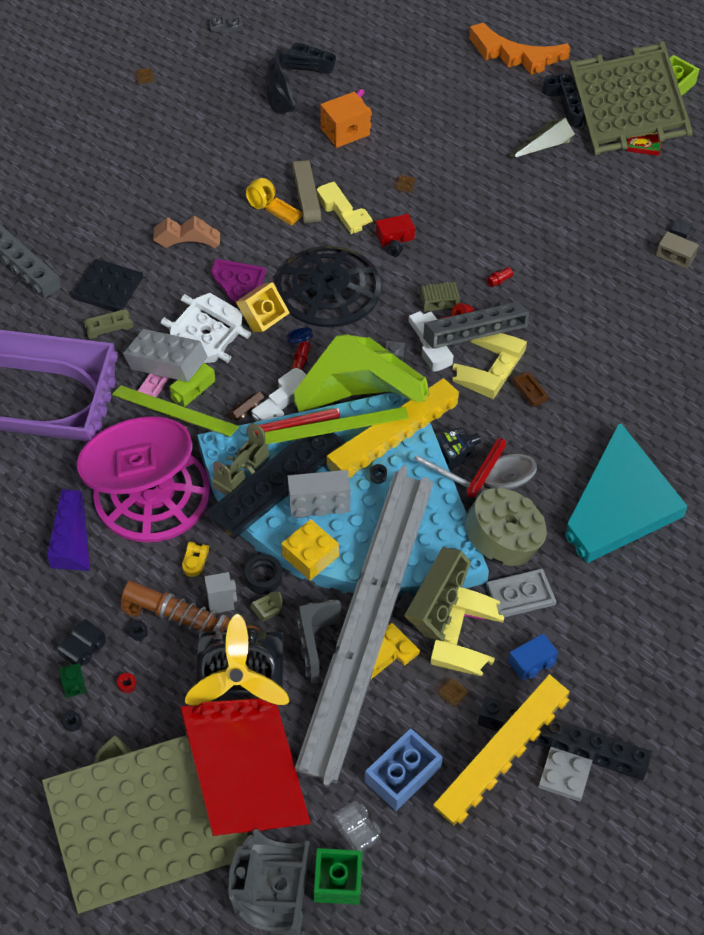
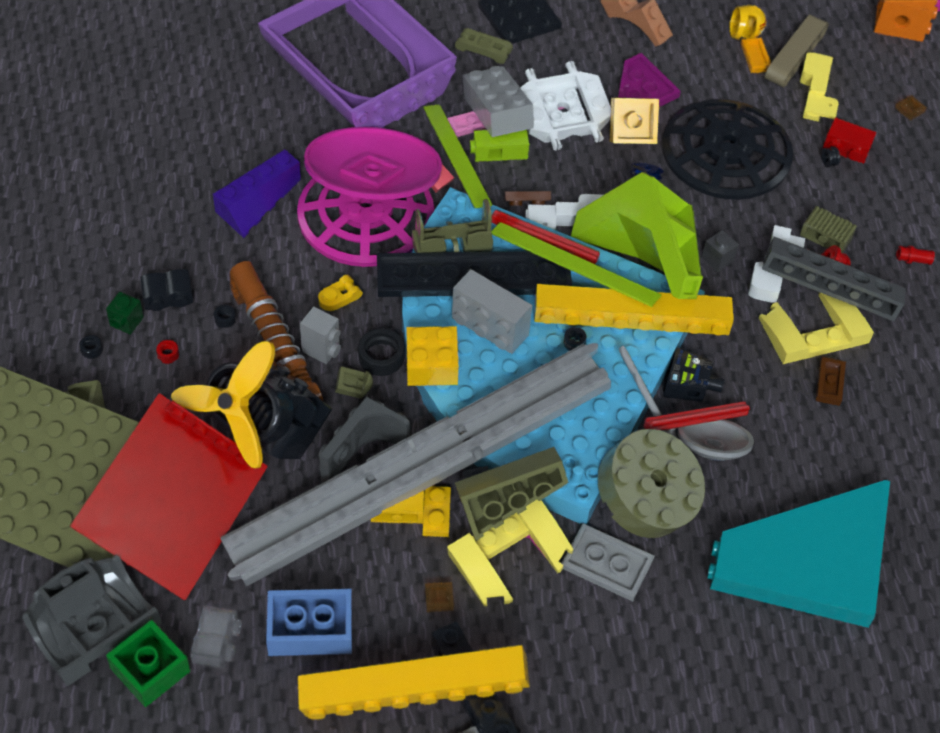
camera: 40 degrees right, 0 degrees up
(533, 657) = (550, 629): blue brick -> none

